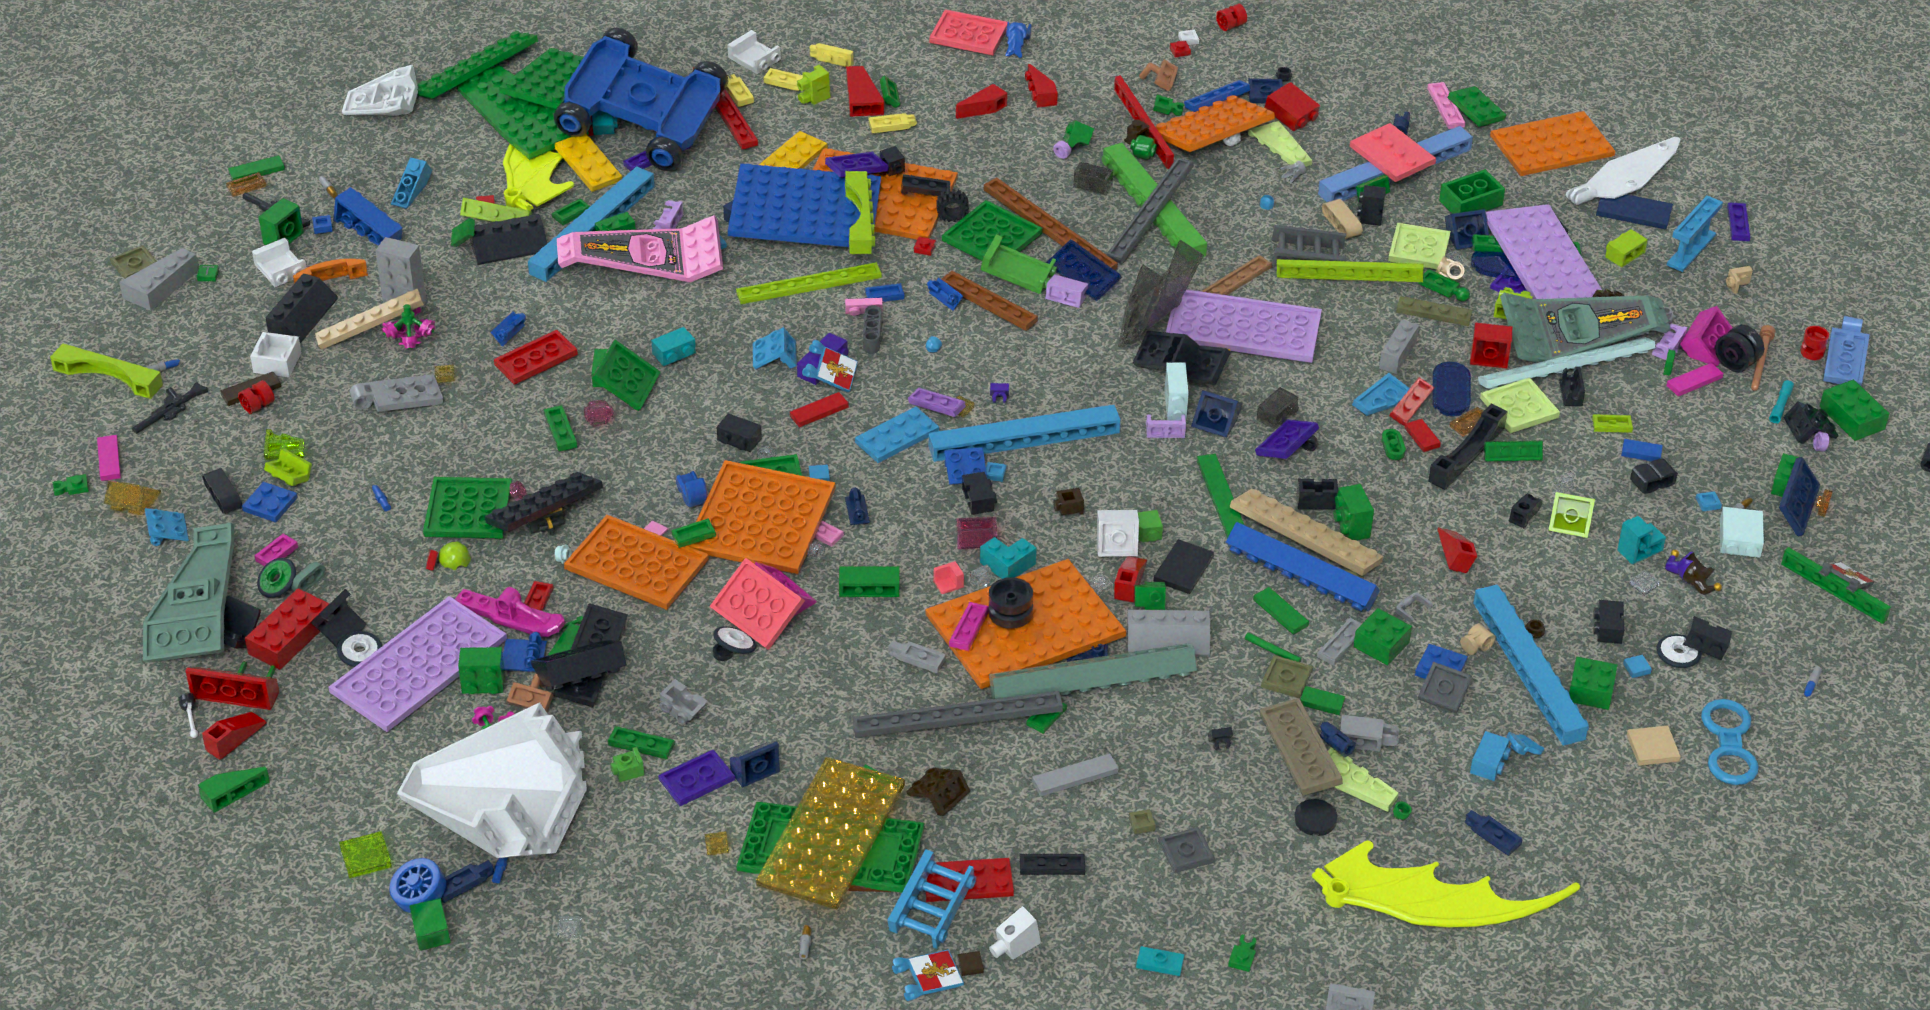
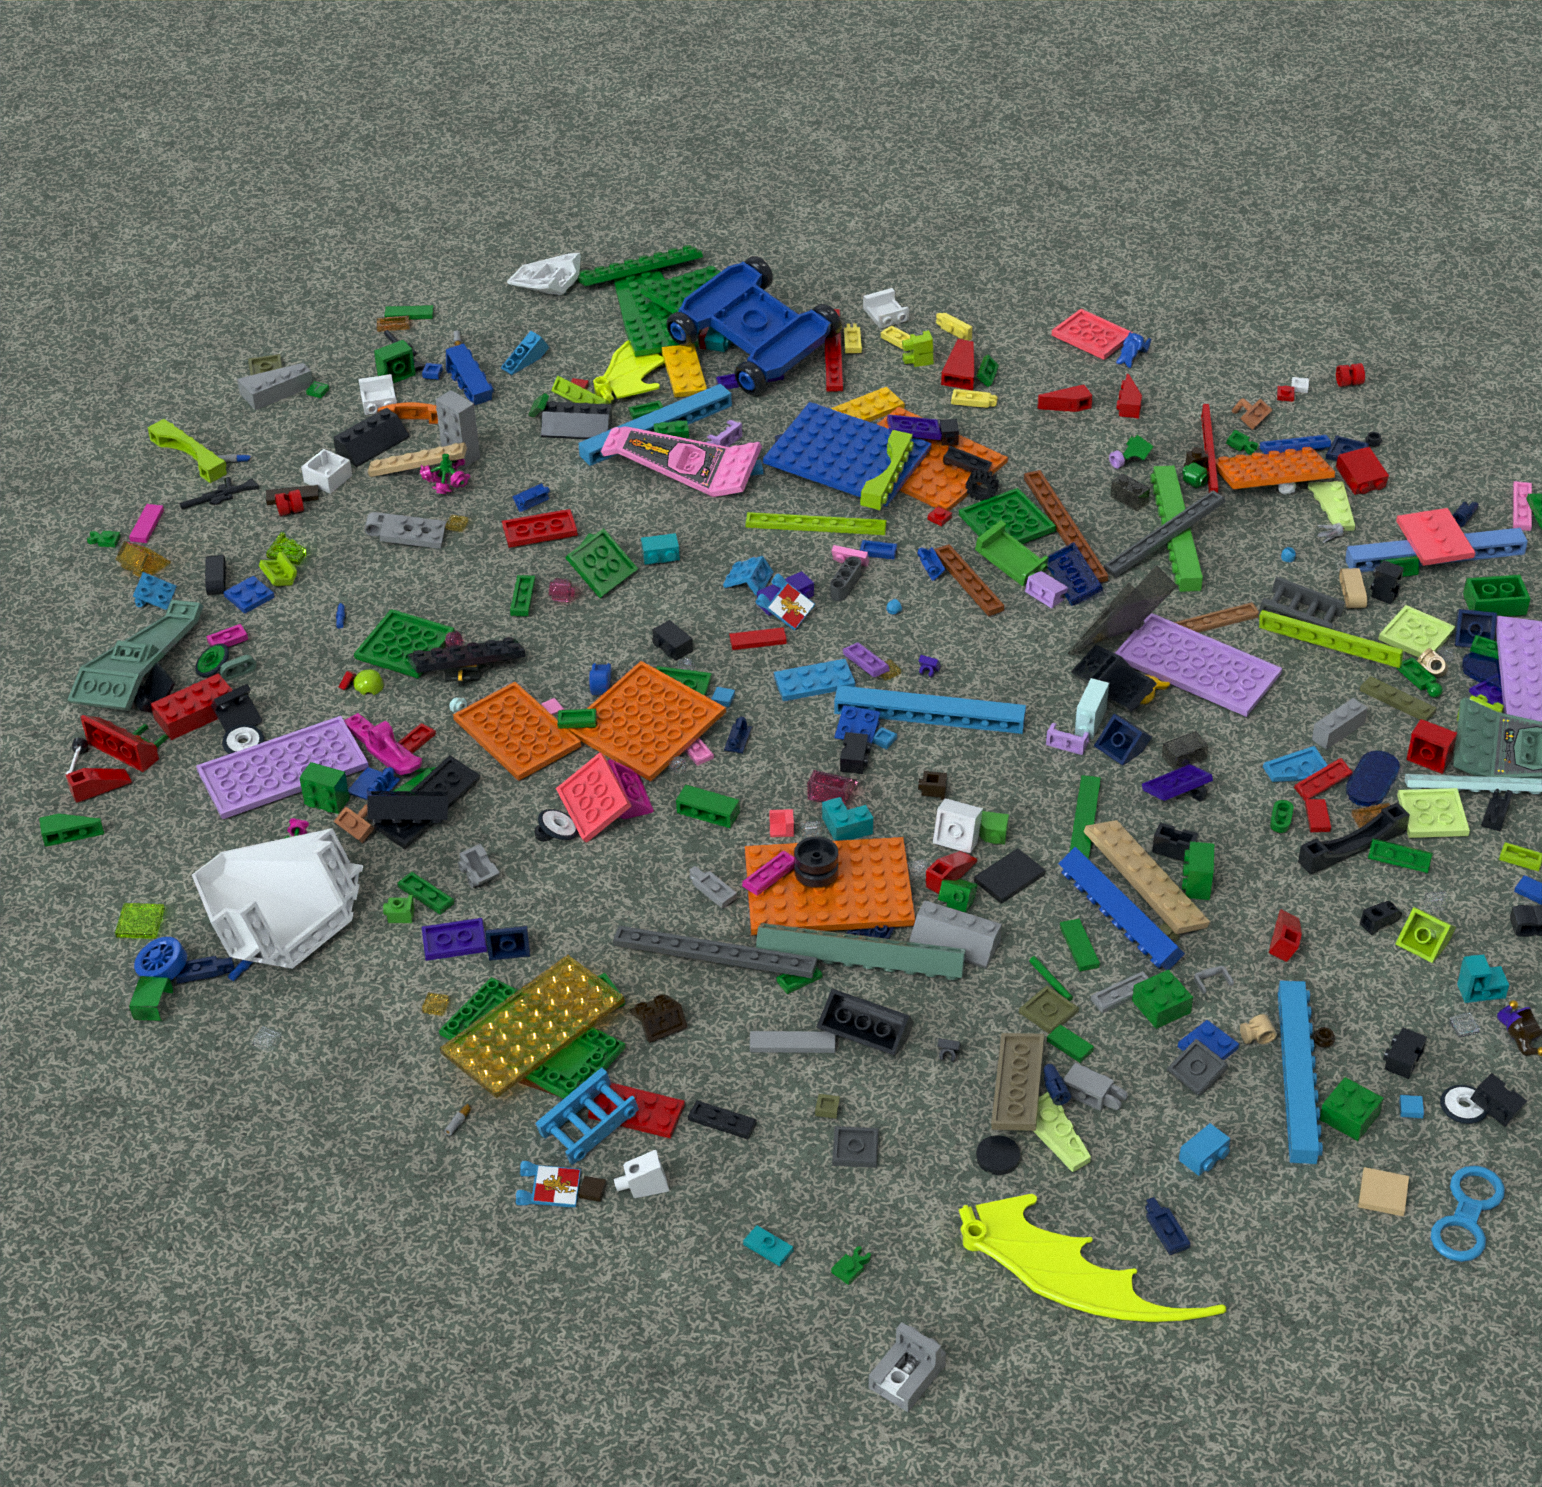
camera: 25 degrees right, 0 degrees up
(1135, 735) = (865, 1022): none -> black slope
(1405, 810) = (1087, 1170): green hinge -> none
(1523, 744) = (1246, 1147): dark azure animal -> none

